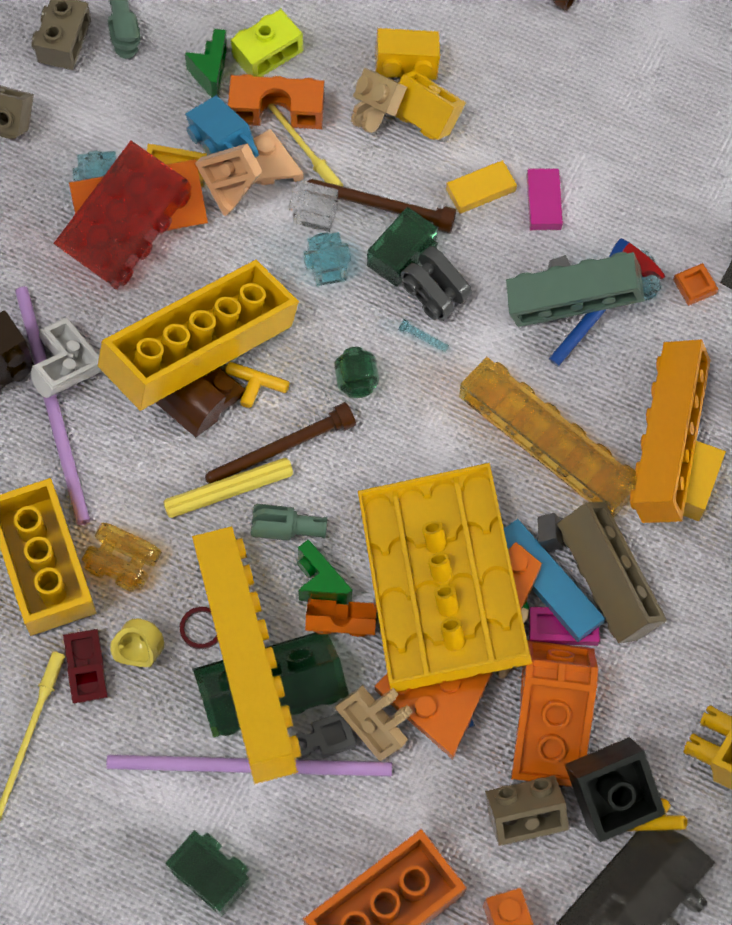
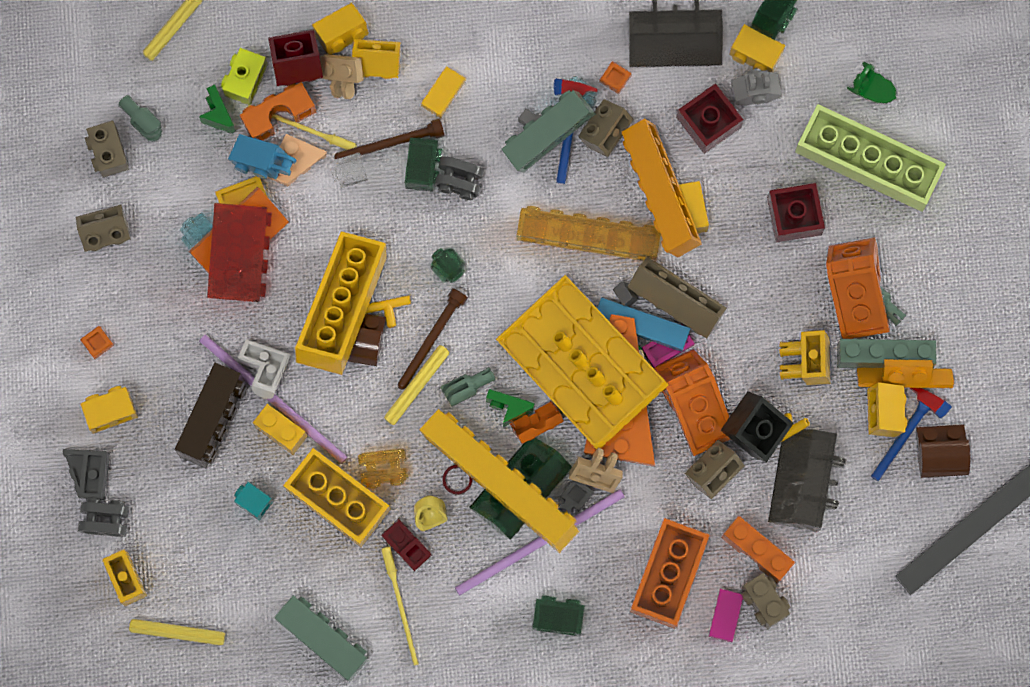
camera: 30 degrees left, 10 degrees up
(32, 439) = (280, 429): none -> yellow brick
(229, 175) = (287, 185): light nougat wing -> none
(327, 258) = (380, 200): clear light blue brick -> none
(334, 52) = (295, 58): none -> dark red brick
(405, 326) = (470, 214): clear light blue piece -> none
(544, 199) = (488, 76): dark pink tile -> none
(646, 327) = (605, 128): none -> dark tan brick

